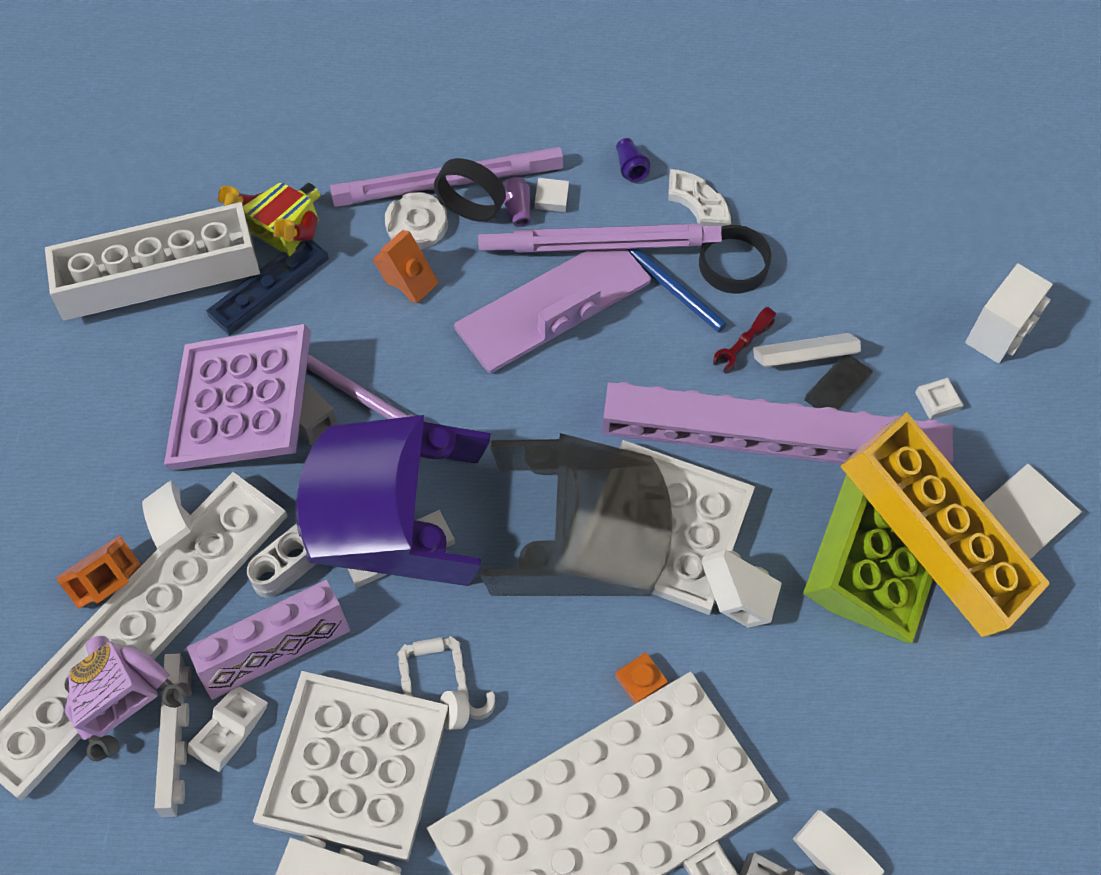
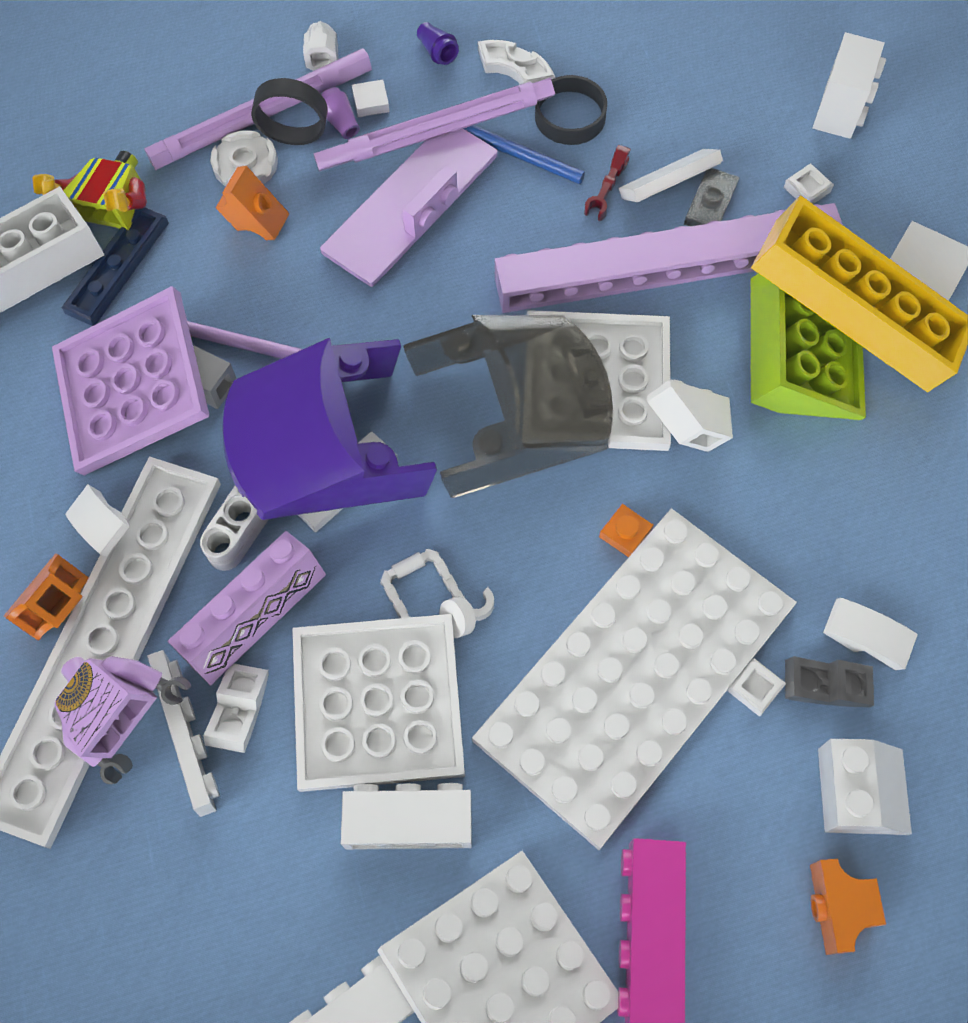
camera: 15 degrees left, 5 degrees up
(522, 133) = (320, 46): none -> white rock

